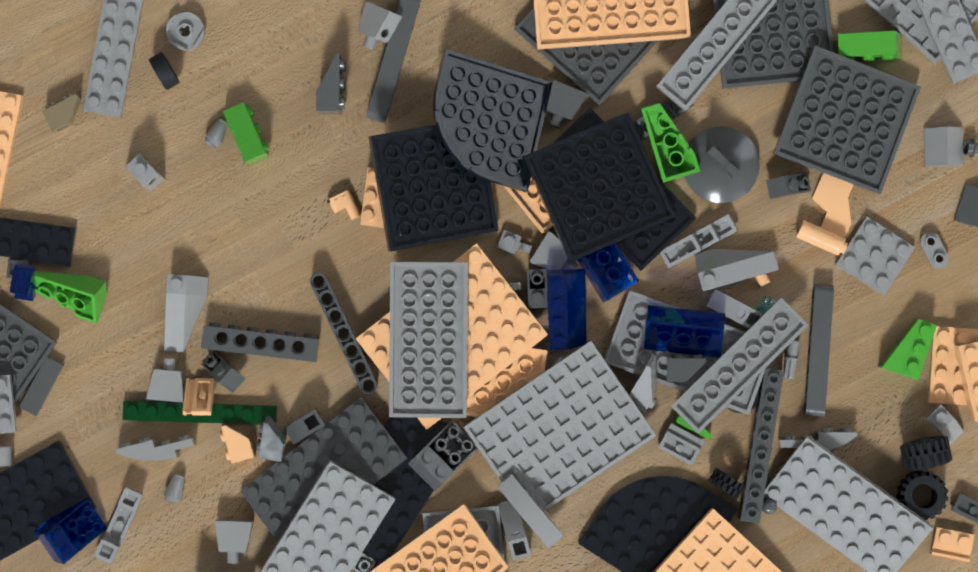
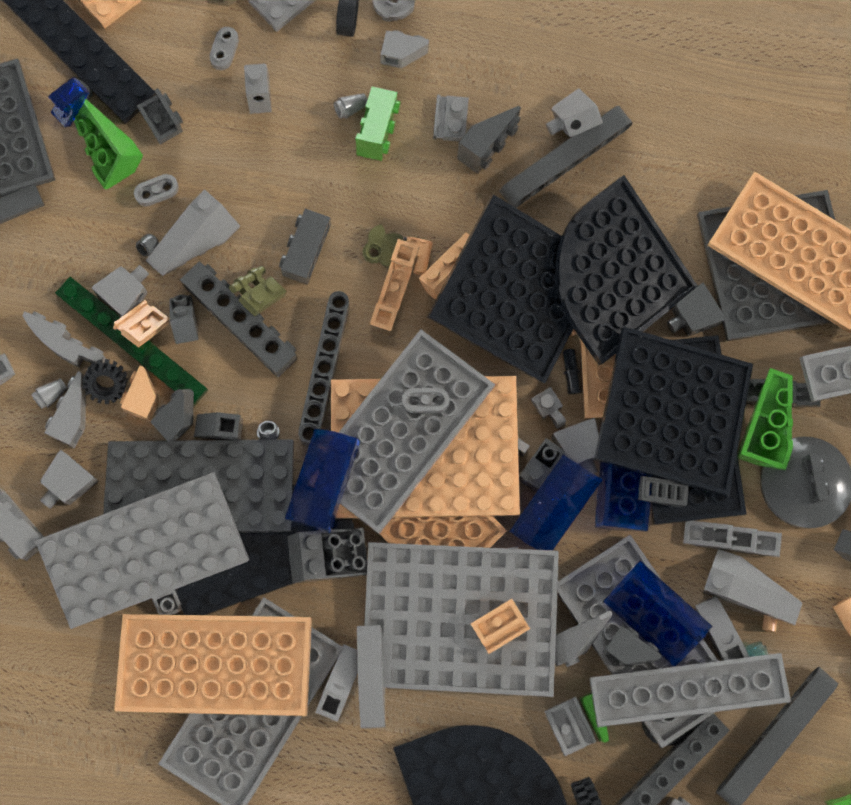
camera: 30 degrees right, 10 degrees down
(93, 244) = (160, 117): none -> dark grey bracket
(95, 158) = (224, 46): none -> light grey plate
(133, 297) = (155, 188): none -> light grey plate
(156, 336) = (148, 241): none -> dark grey piece
(202, 495) = (70, 418): none -> light grey slope
(211, 461) = (109, 370): none -> black tyre
(220, 66) = (402, 49): none -> light grey slope
(263, 318) = (262, 295): none -> olive plate
(264, 258) = (305, 246): none -> dark grey brick
(292, 89) = (450, 118): none -> light grey plate
(320, 215) = (383, 243): none -> olive plate
(339, 403) = (268, 431): none -> dark grey plate
(347, 240) = (395, 285): none -> light nougat slope
(403, 412) = (322, 479): none -> clear blue slope
(430, 308) = (425, 398): none -> light grey plate
(510, 208) = (572, 372): none -> black axle
(589, 417) = (500, 626): none -> light nougat plate
(640, 241) = (677, 492): none -> dark grey slope
(791, 360) = (742, 725): light grey axle -> none

